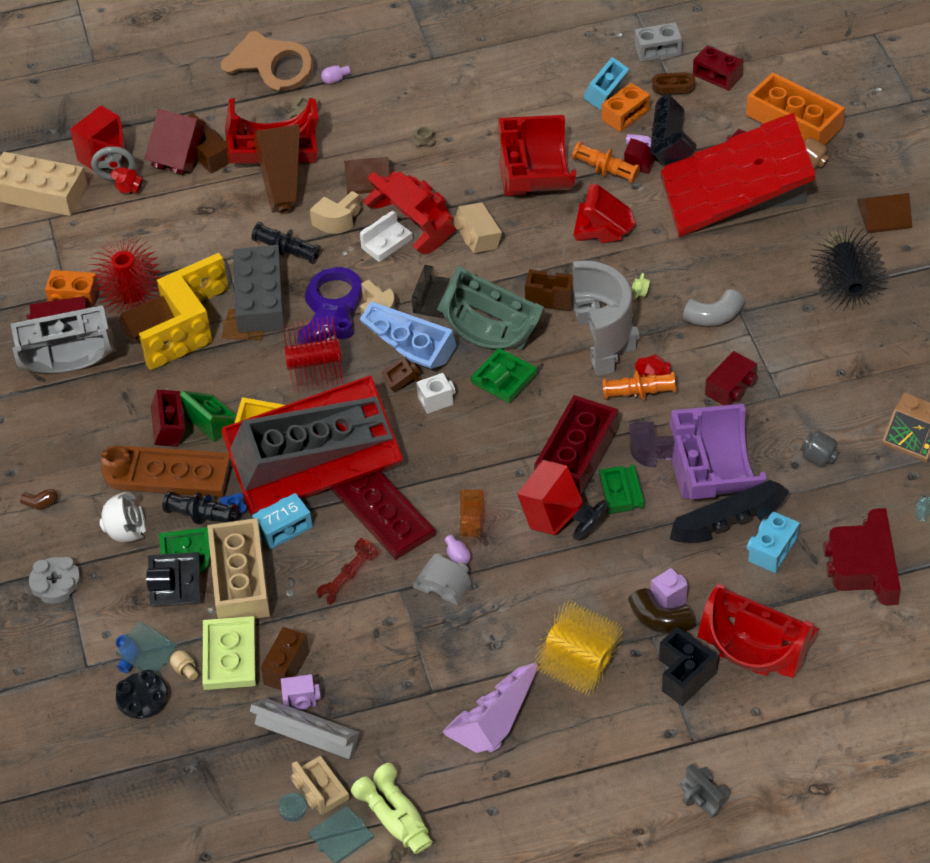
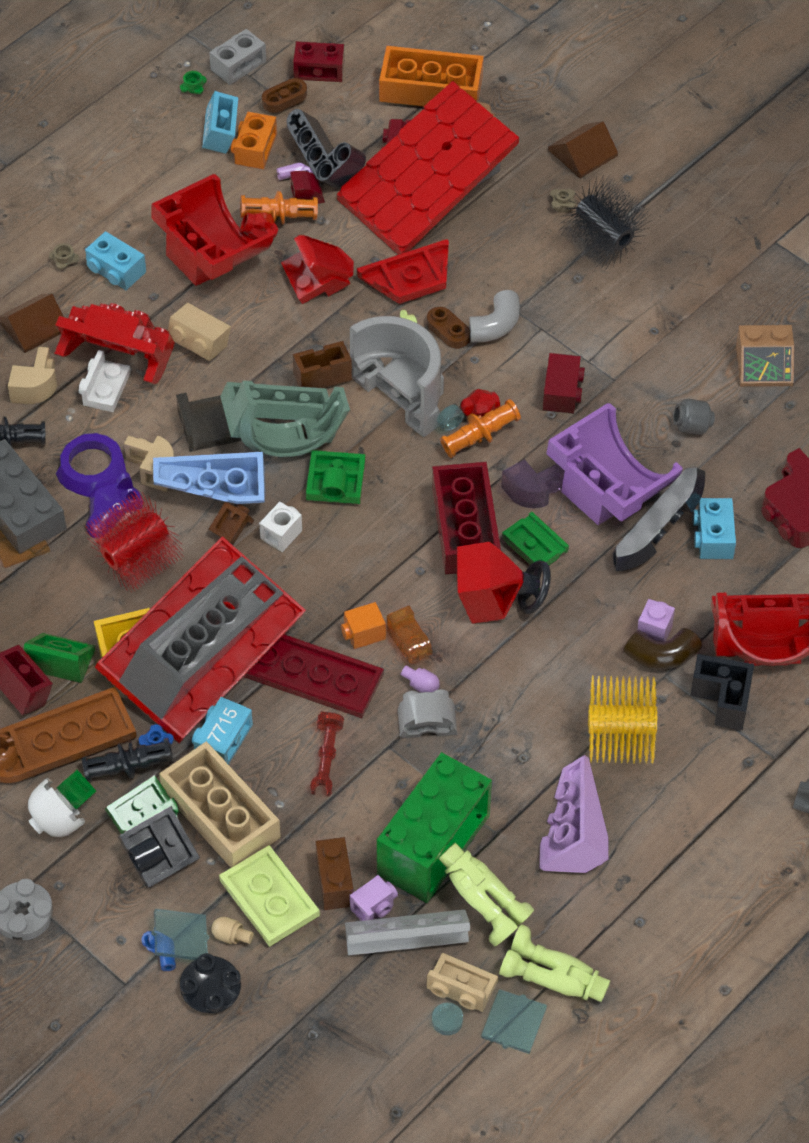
camera: 35 degrees left, 5 degrees up
(149, 512) = (76, 789): none -> green tile
(376, 709) = (472, 880): none -> yellowish green piece
(377, 659) = (430, 821): none -> green hose
(442, 491) = (364, 625): none -> orange brick
(456, 154) = (115, 260): none -> medium azure brick
(584, 169) = (256, 224): none -> red rock
(611, 48) = (193, 82): none -> green plate
(623, 368) = (450, 418): none -> clear light blue tile
(673, 301) = (444, 324): none -> reddish brown plate
(674, 250) = (409, 273): none -> red wing

